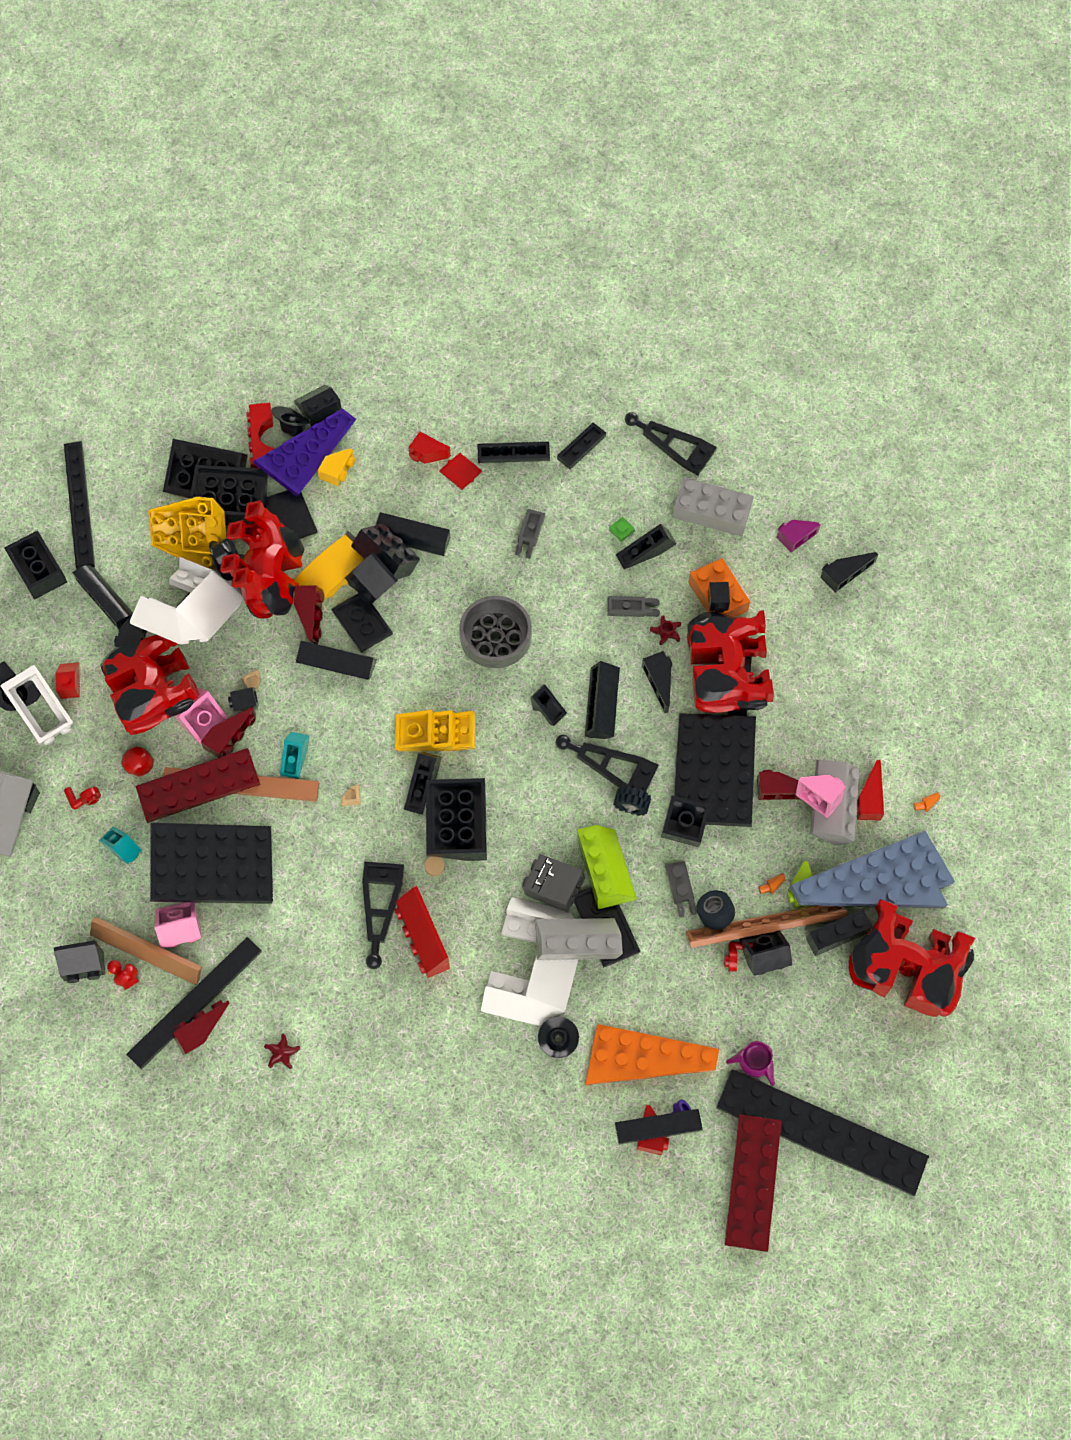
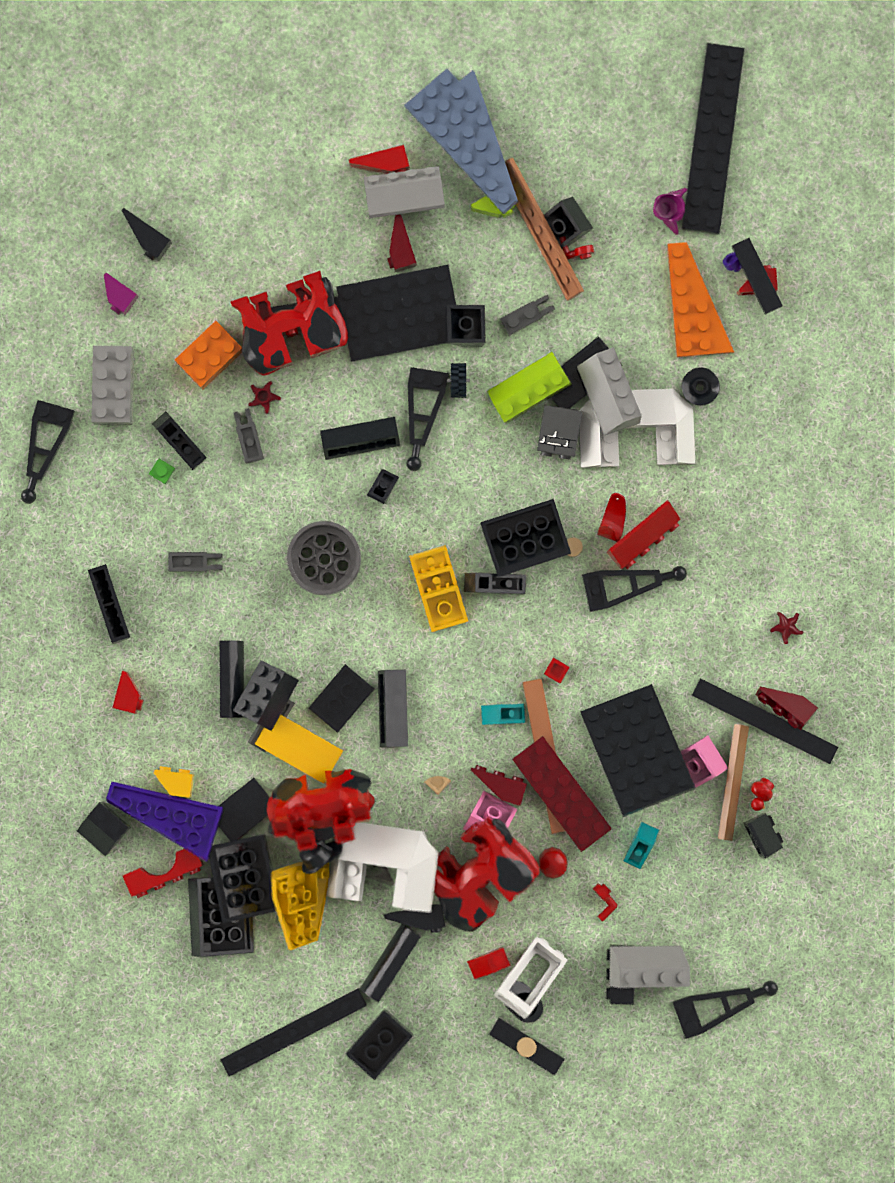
camera: 105 degrees left, 20 degrees up
(243, 699) = (462, 782): black brick -> none
(290, 420) = (133, 848): black piece -> none
(308, 605) = (346, 753): dark red slope -> none
(318, 815) = (556, 670): none -> red plate
(351, 797) = (527, 646): tan tile -> none
(371, 579) = (303, 699): black slope -> none
(445, 911) = (614, 518): none -> red piece
(460, 471) = (140, 654): red piece -> none
(581, 445) = (76, 538): black plate -> none
(658, 671) = (317, 389): black slope -> none
(715, 910) = (536, 282): black wheel -> none
(718, 596) = (226, 349): black brick -> none
(753, 1183) = (775, 186): dark red plate -> none
(772, 884) = (498, 233): orange bar -> none
(821, 792) = (411, 198): bright pink slope -> none
(839, 932) = (529, 161): black brick -> none
(927, 802) = (373, 108): orange bar -> none
(935, 971) = (544, 66): red animal -> none

